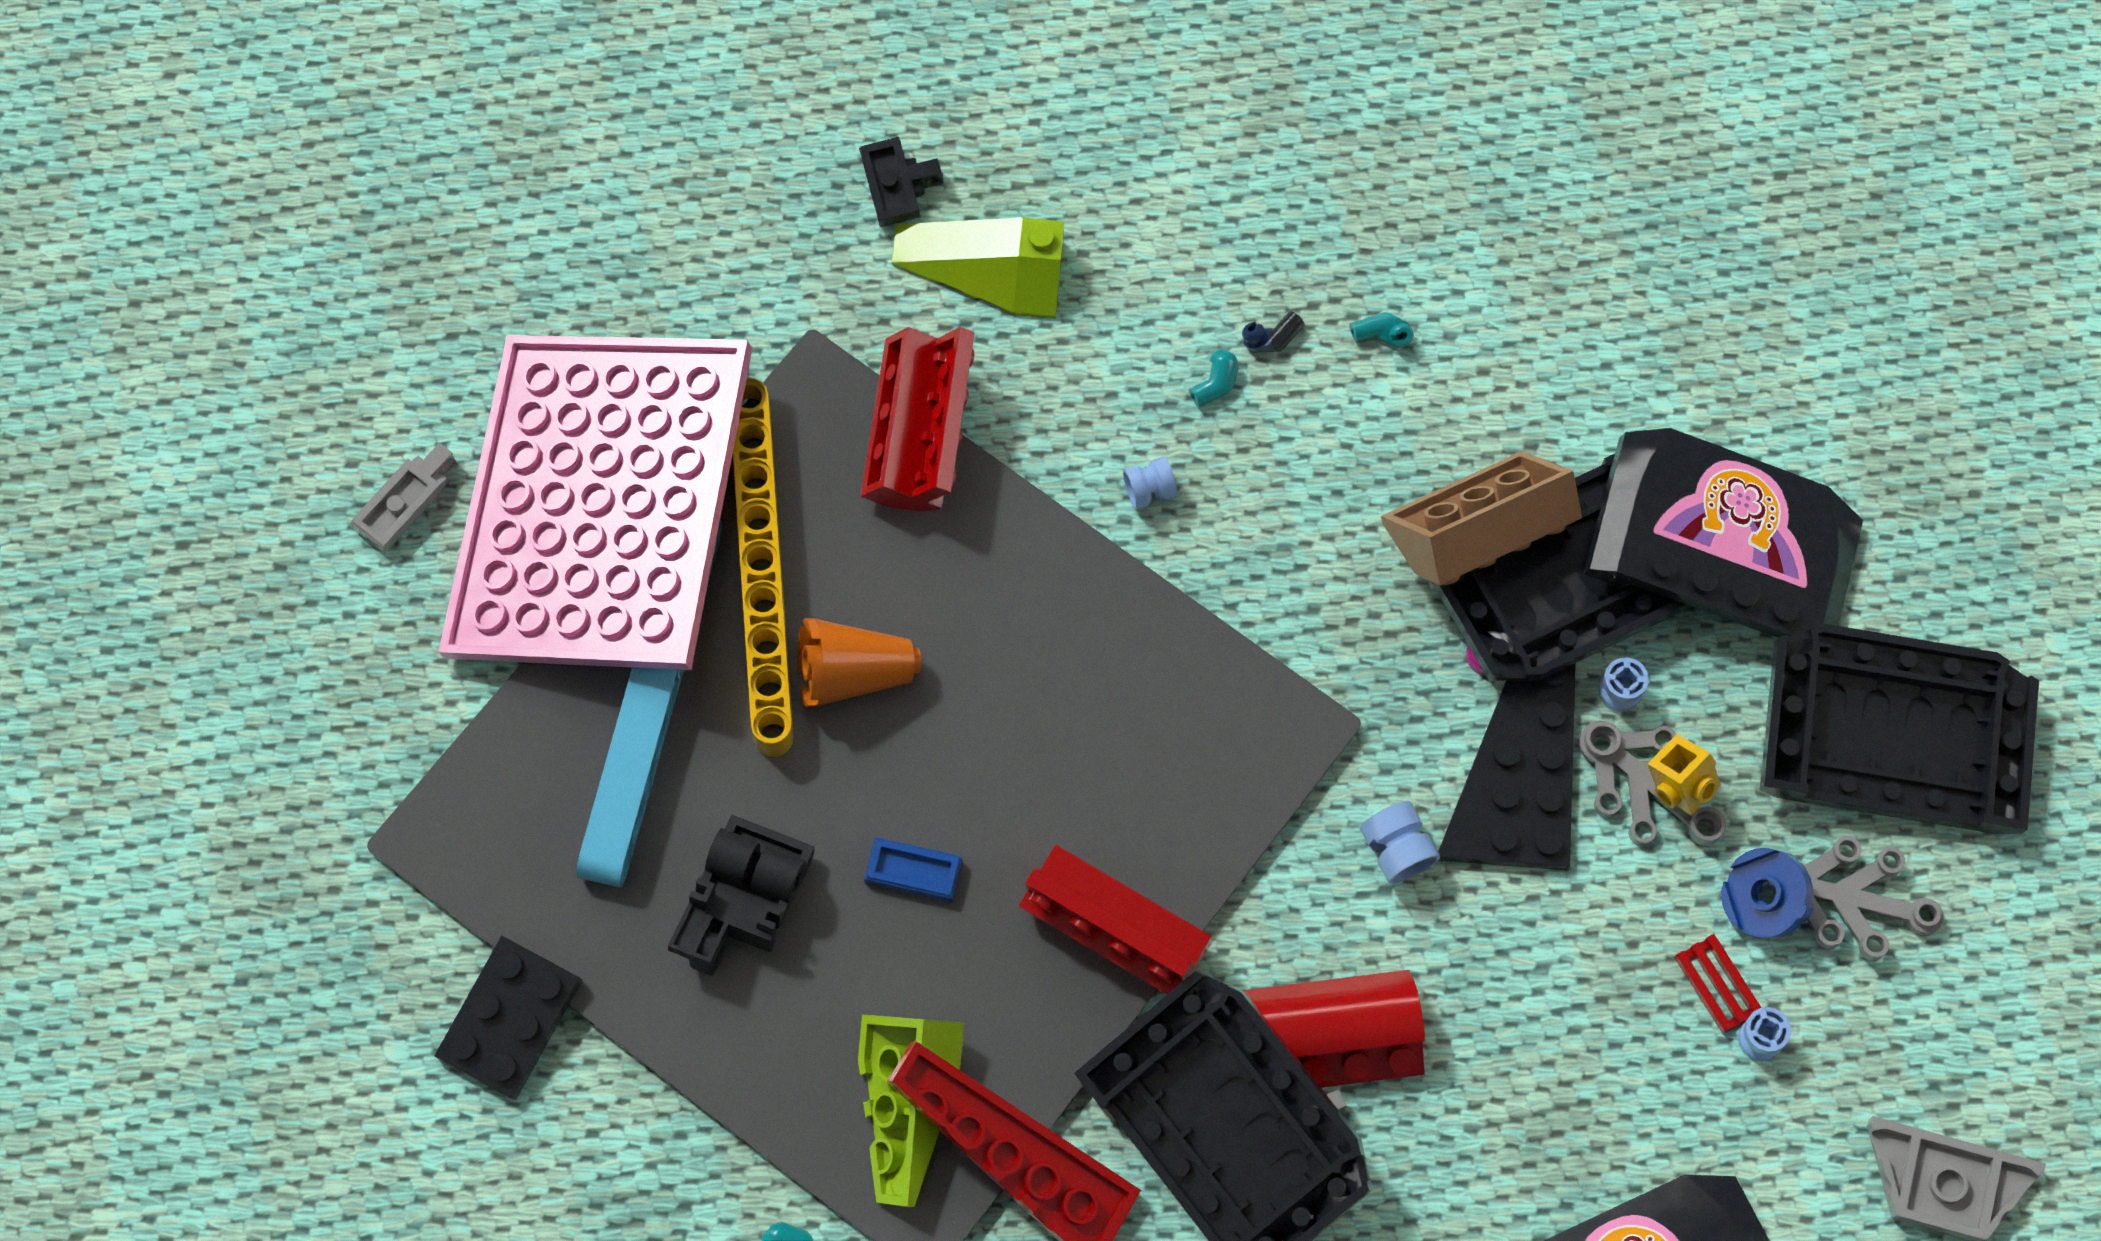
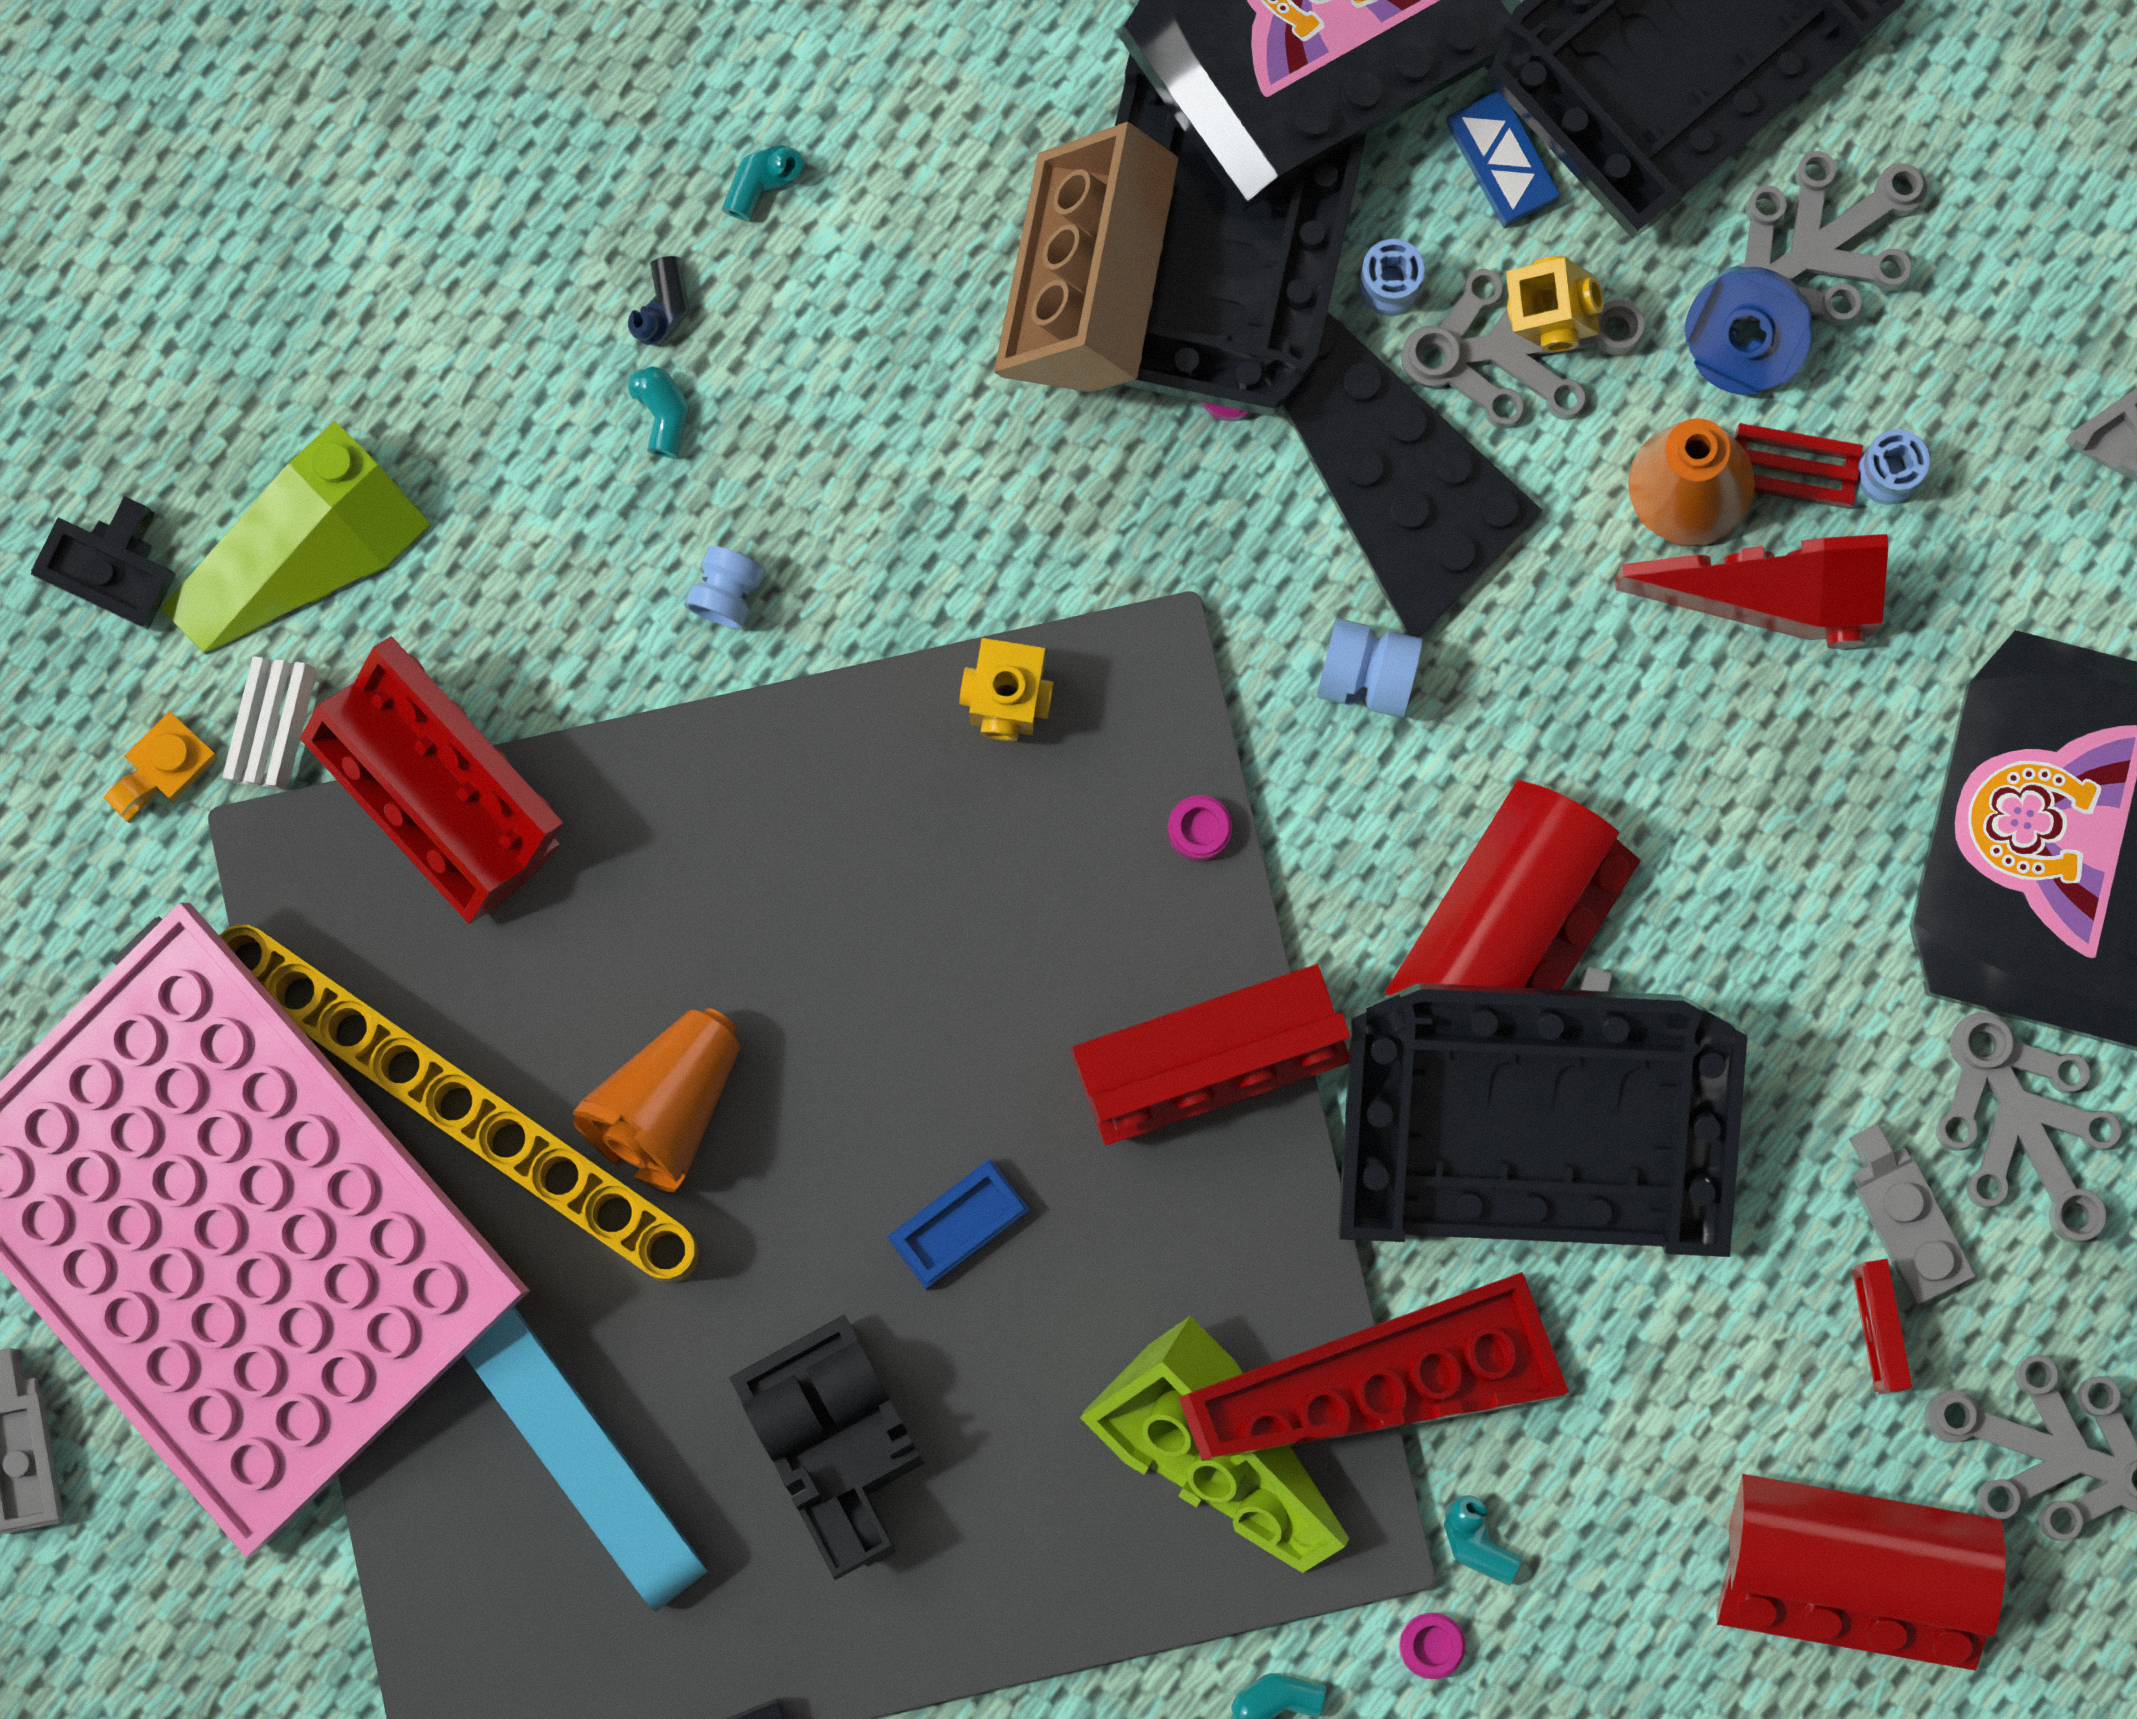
camera: 50 degrees left, 10 degrees up
(820, 288) = (165, 761): none -> light orange plate
(878, 321) = (260, 723): none -> white tile
(1219, 661) = (1002, 668): none -> yellow brick
(1234, 824) = (1199, 828): none -> dark pink tile
(1654, 1042) = (1813, 593): none -> red wedge
(1658, 932) = (1691, 483): none -> orange cone
(1742, 693) = (1502, 159): none -> blue tile

